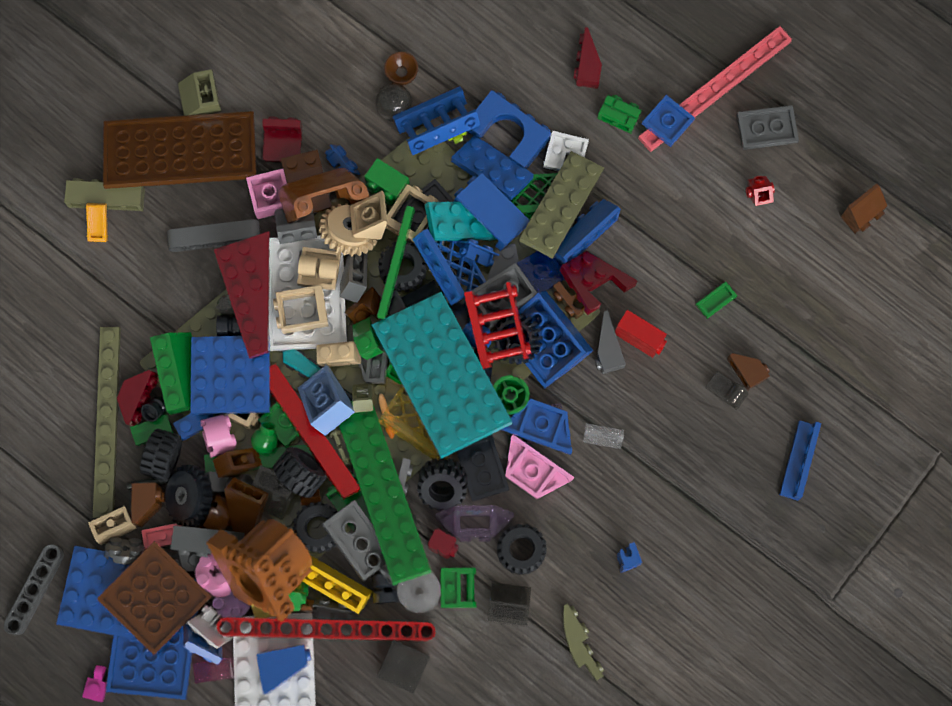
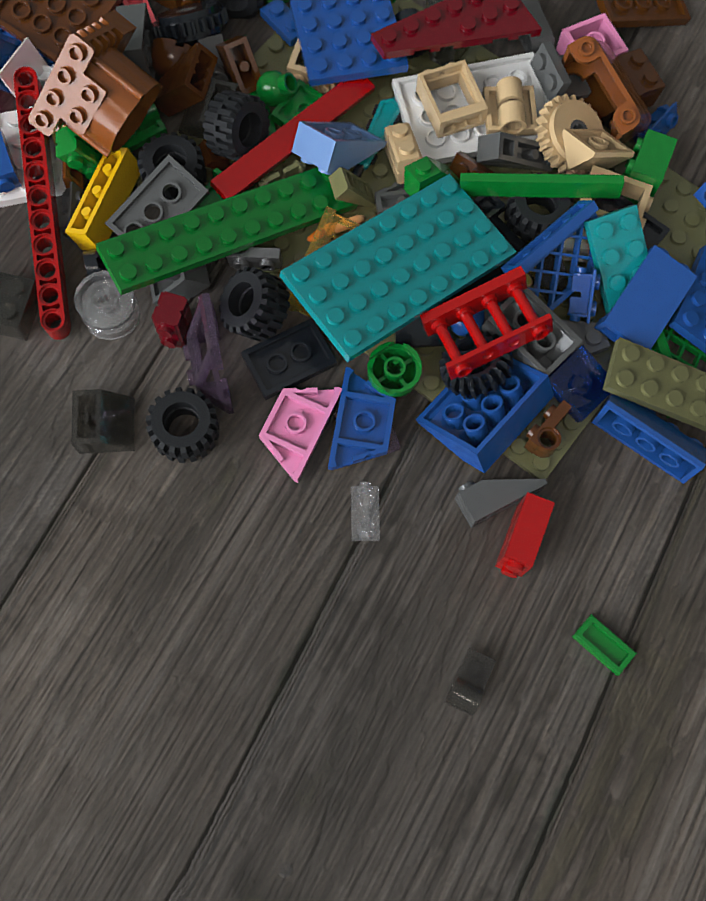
camera: 75 degrees right, 5 degrees down
(217, 435) = (270, 37): bright pink brick -> none
(281, 138) = (672, 54): dark red bracket -> none
(452, 588) = (120, 347): green plate -> none
(575, 634) = (70, 518): olive slope -> none
(588, 273) = (595, 450): dark red wing -> none
(630, 559) = (191, 576): blue hinge -> none
(749, 370) = (509, 711): reddish brown slope -> none
(800, 460) = (386, 816): blue fence -> none

